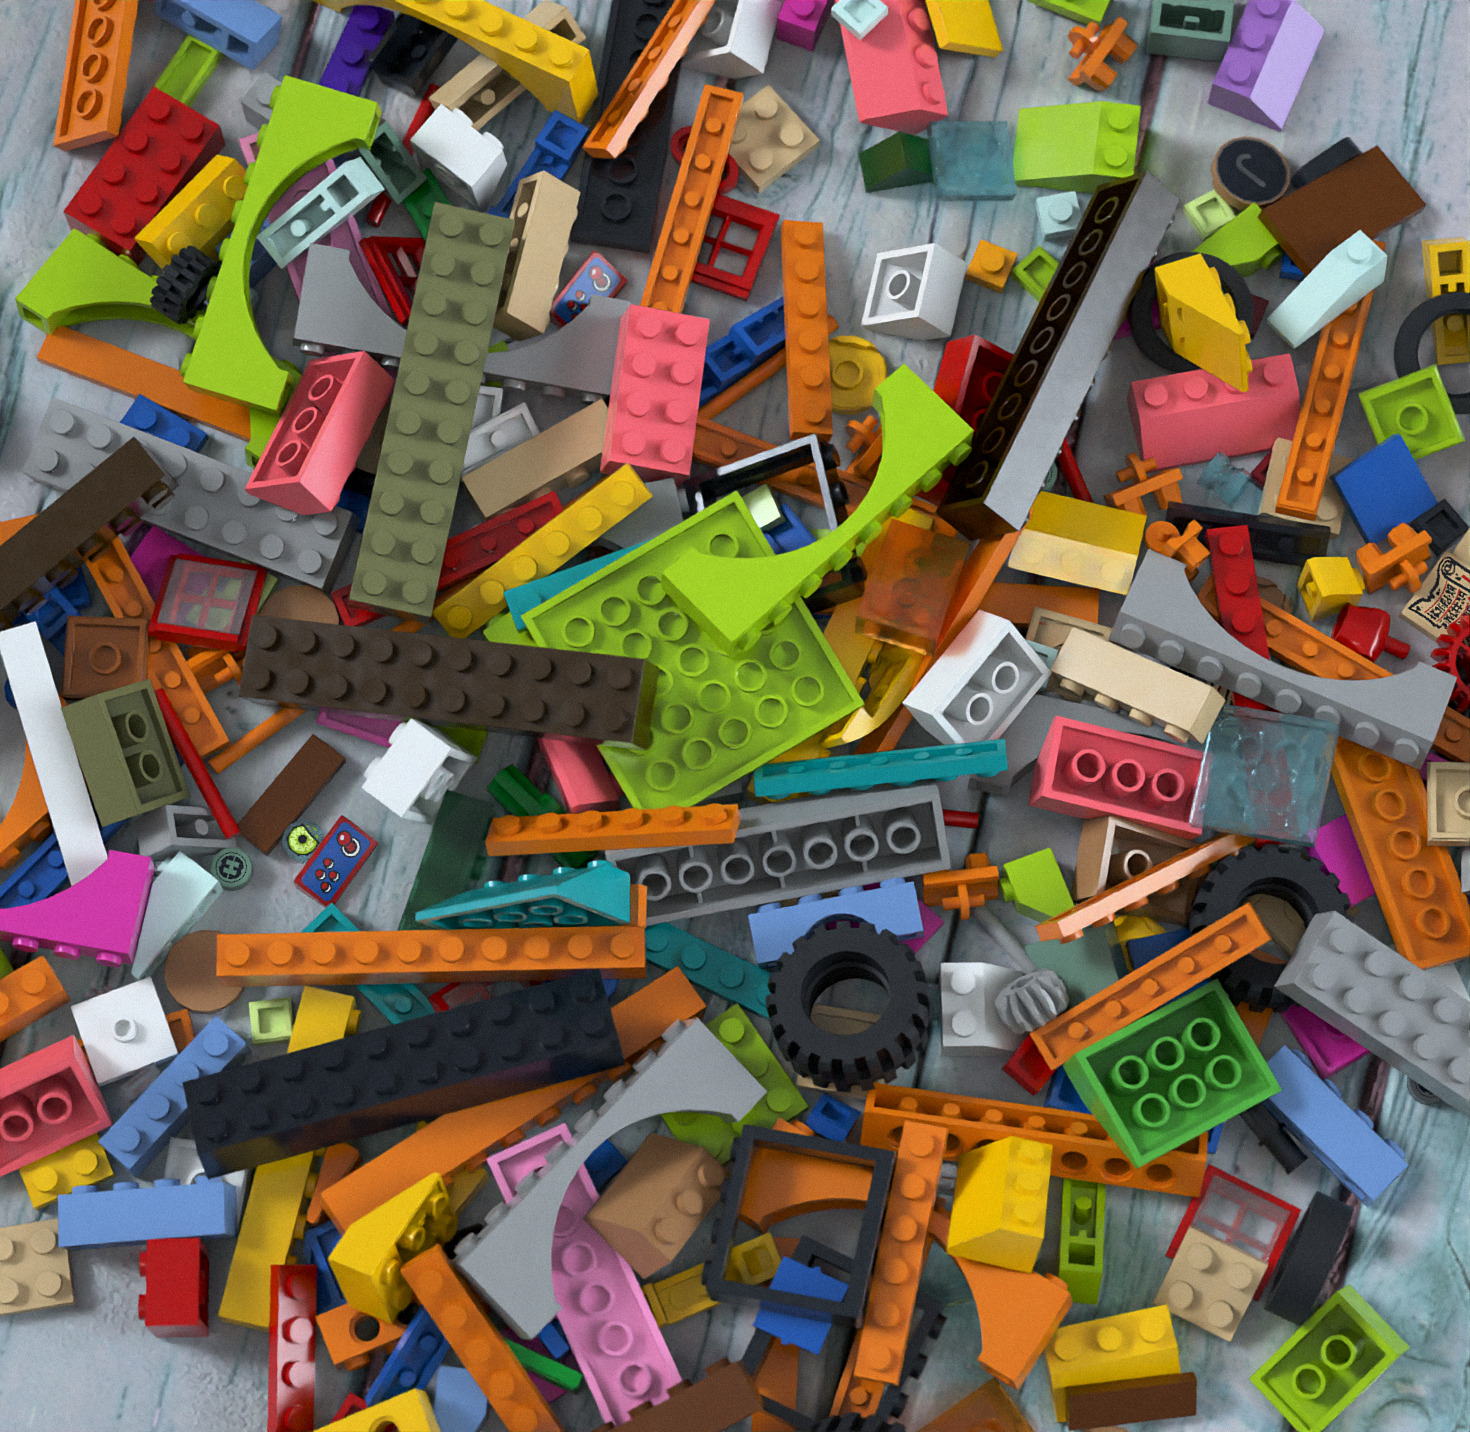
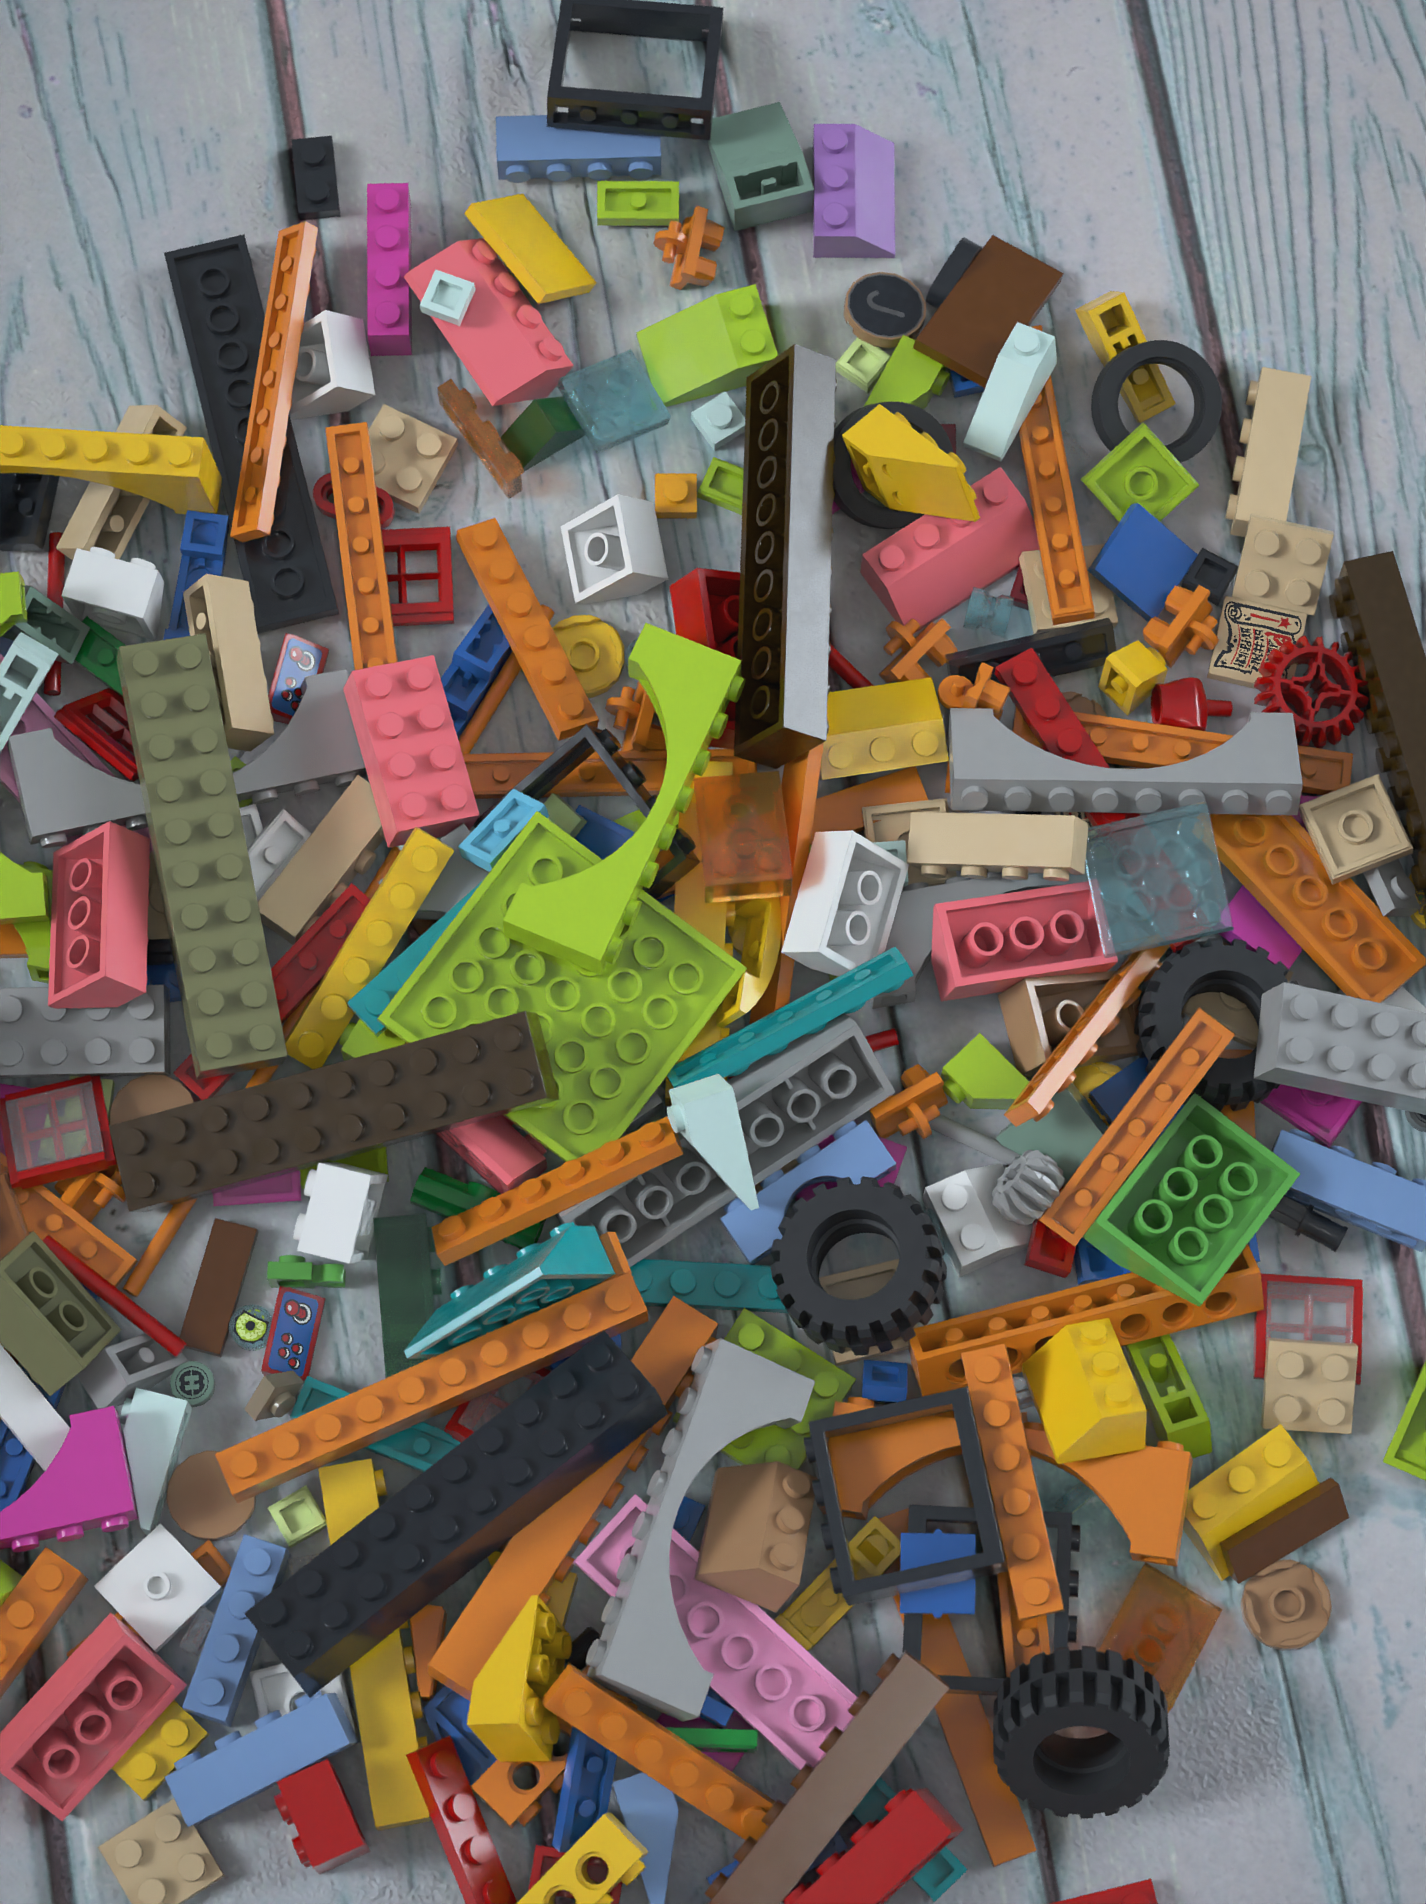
camera: 25 degrees left, 0 degrees up
(295, 907) = (274, 1395): none -> dark tan plate
(361, 810) = (296, 1273): none -> bright green plate
(701, 493) = (499, 829): none -> medium azure plate
(768, 828) = (711, 1123): none -> light aqua slope
(841, 147) = (481, 437): none -> clear orange plate
(1309, 1258) = (1395, 1323): black tyre -> none

